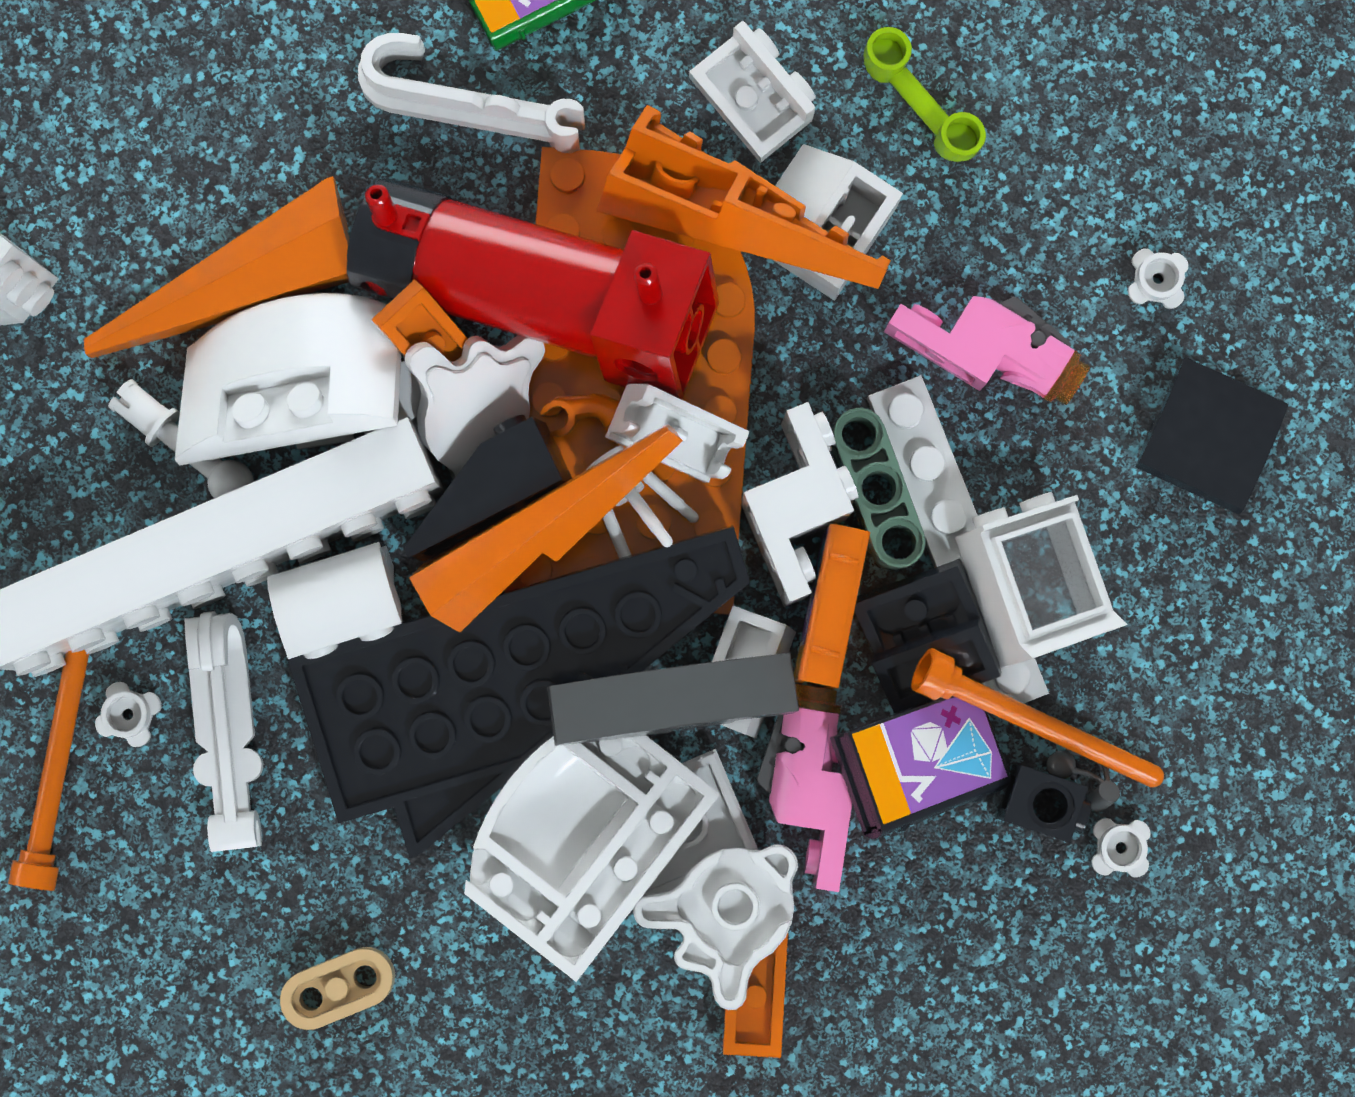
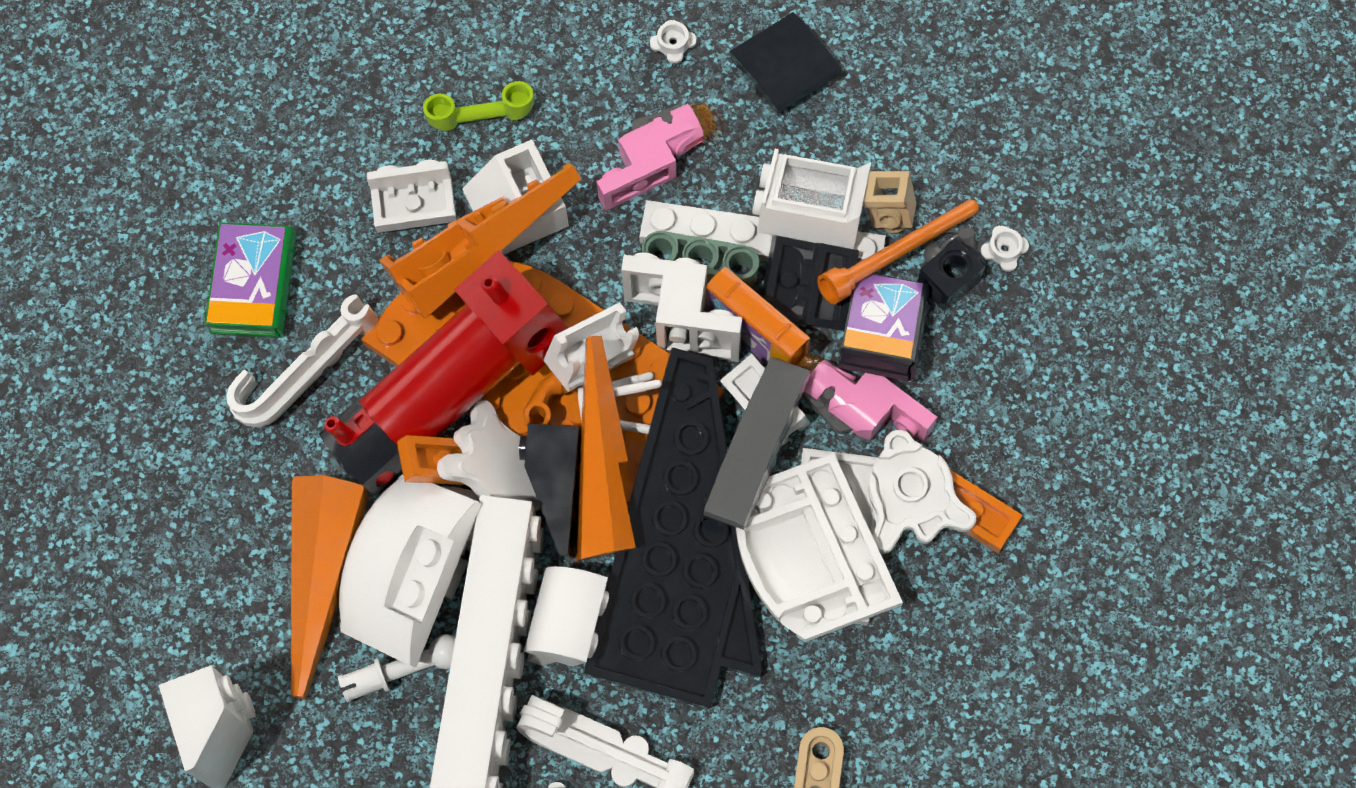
camera: 55 degrees left, 15 degrees down
(1082, 680) = (890, 211): none -> tan brick

